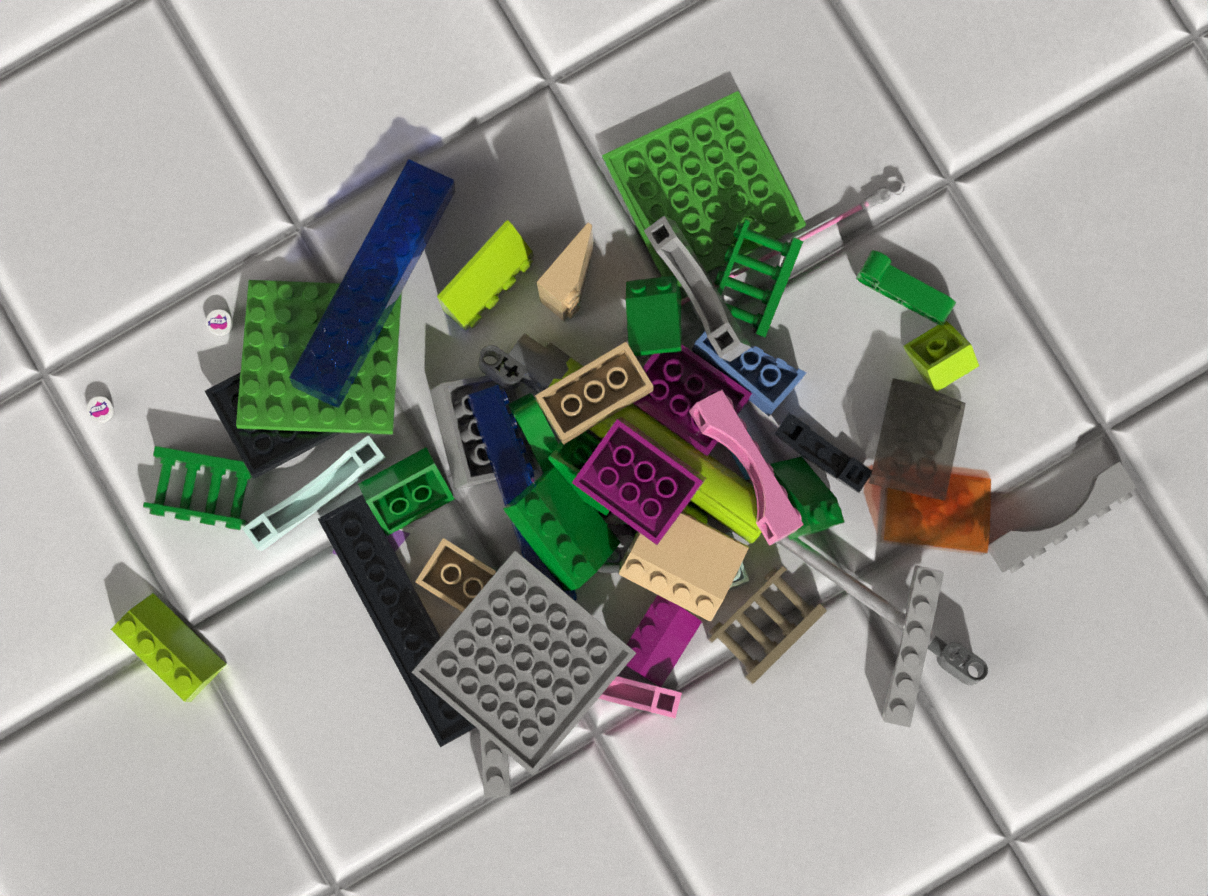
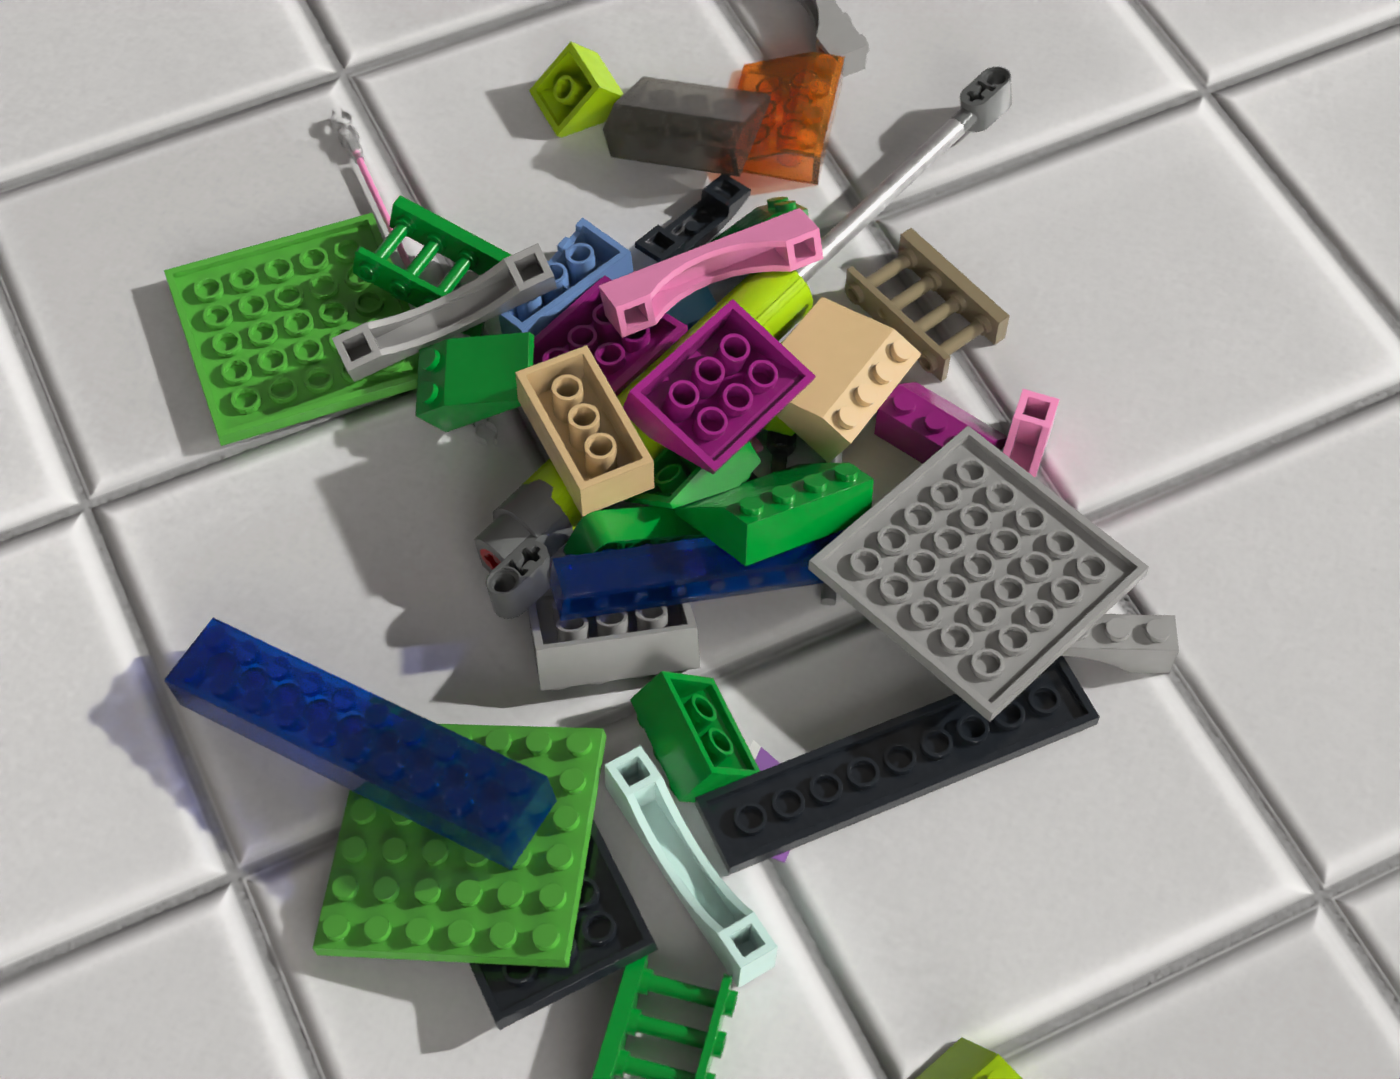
camera: 90 degrees left, 25 degrees down
(219, 322) = (376, 1008): white tile -> none
(454, 575) = (840, 668): tan brick -> none
(486, 277) = (375, 592): lime slope -> none
(565, 279) = (397, 458): tan slope -> none
(905, 289) = (464, 137): green beam -> none
(913, 646) = (1024, 162): light grey arch -> none

